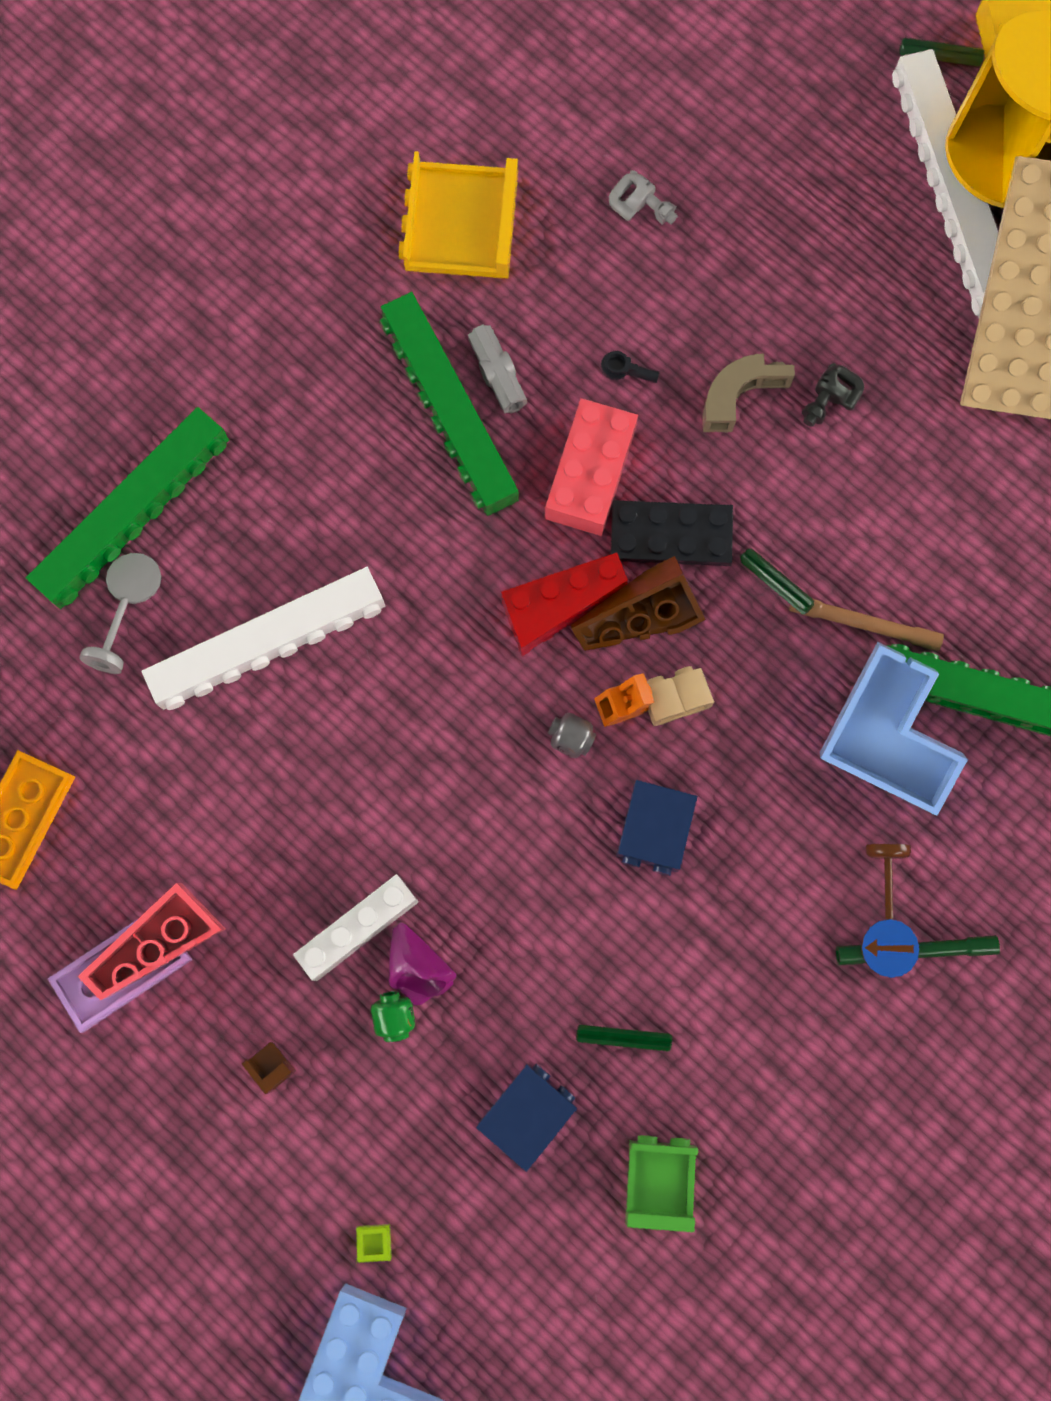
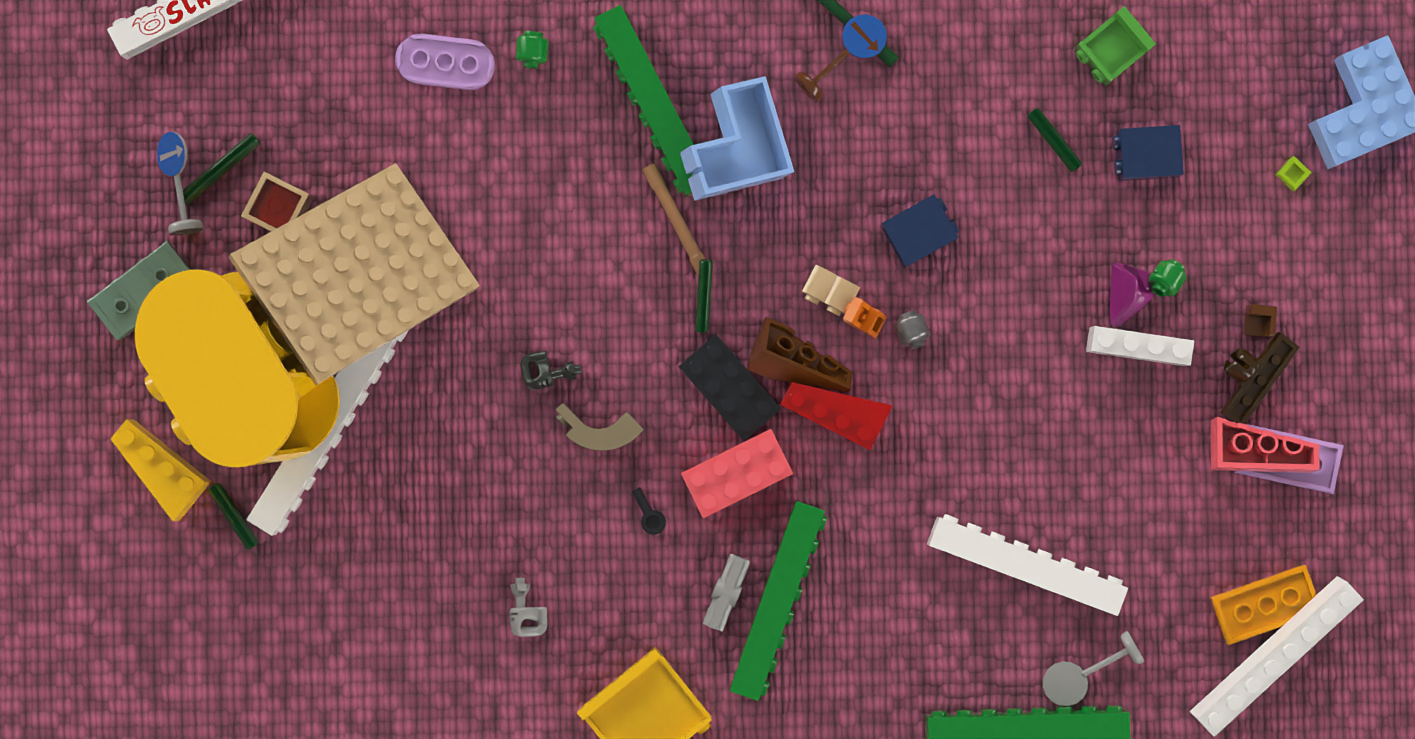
camera: 140 degrees left, 10 degrees up
(222, 1011) = (1256, 376): none -> dark brown plate

